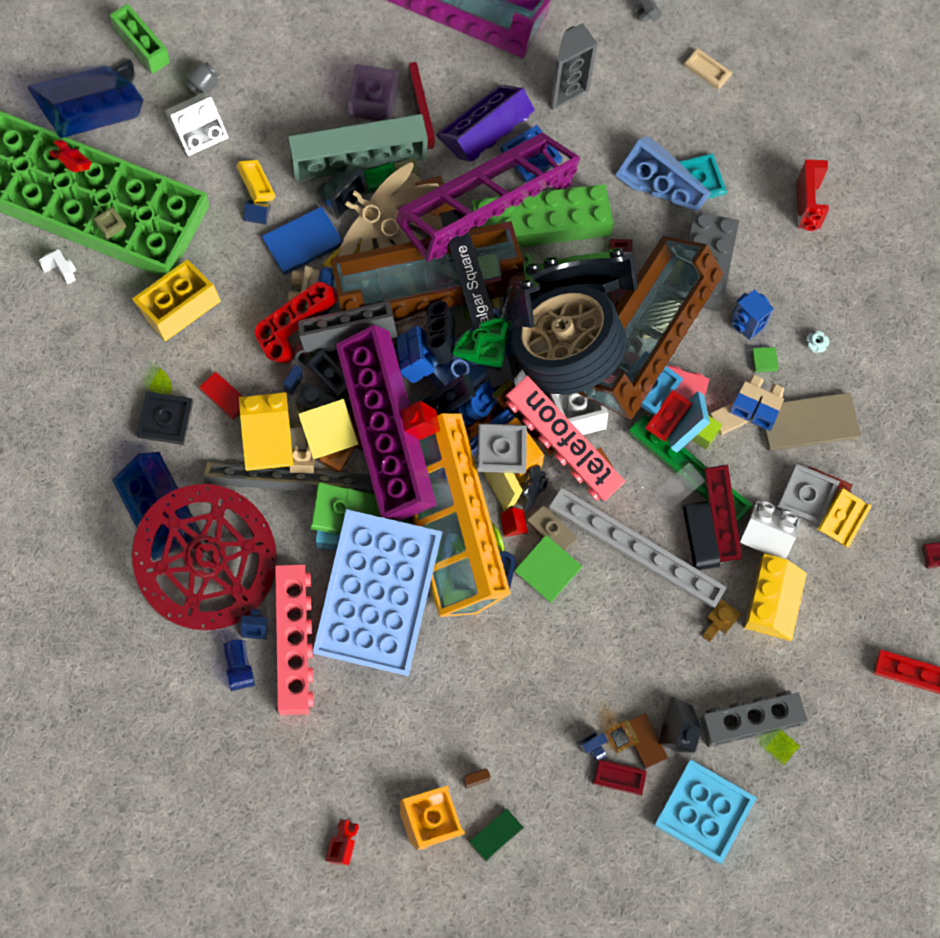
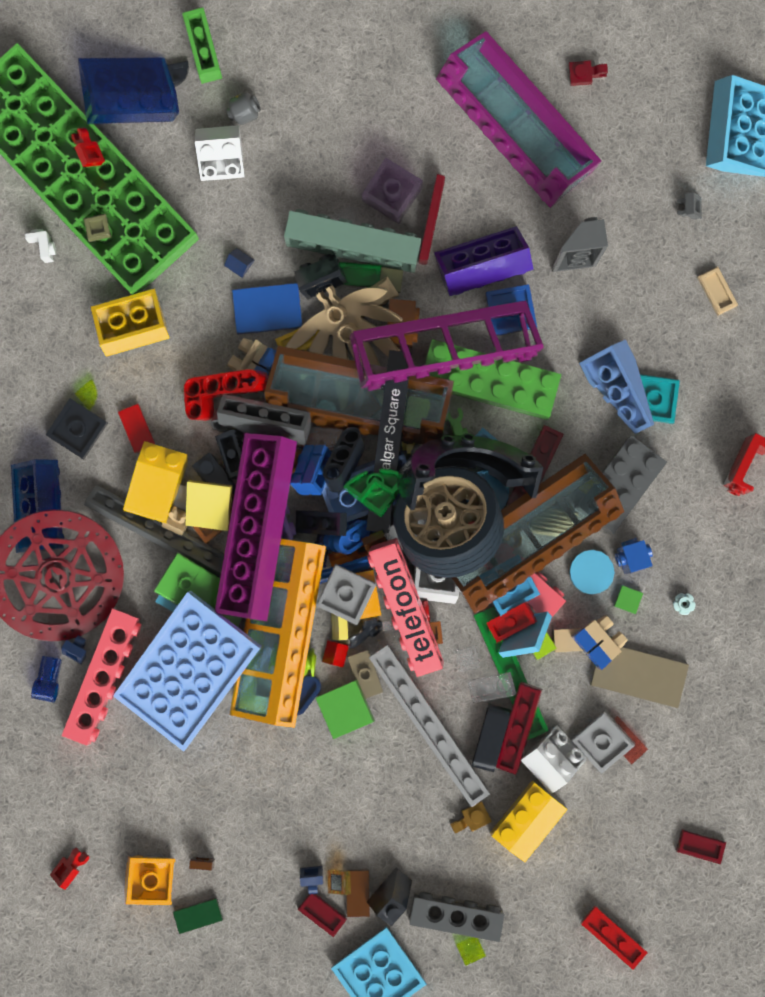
camera: 30 degrees right, 15 degrees up
(255, 180) = (249, 232): yellow tile -> none
(293, 379) = (201, 440): dark blue tile -> none
(420, 420) = (283, 541): red brick -> none
(718, 349) = (591, 572): none -> medium azure tile
(844, 517) = (623, 777): yellow plate -> none

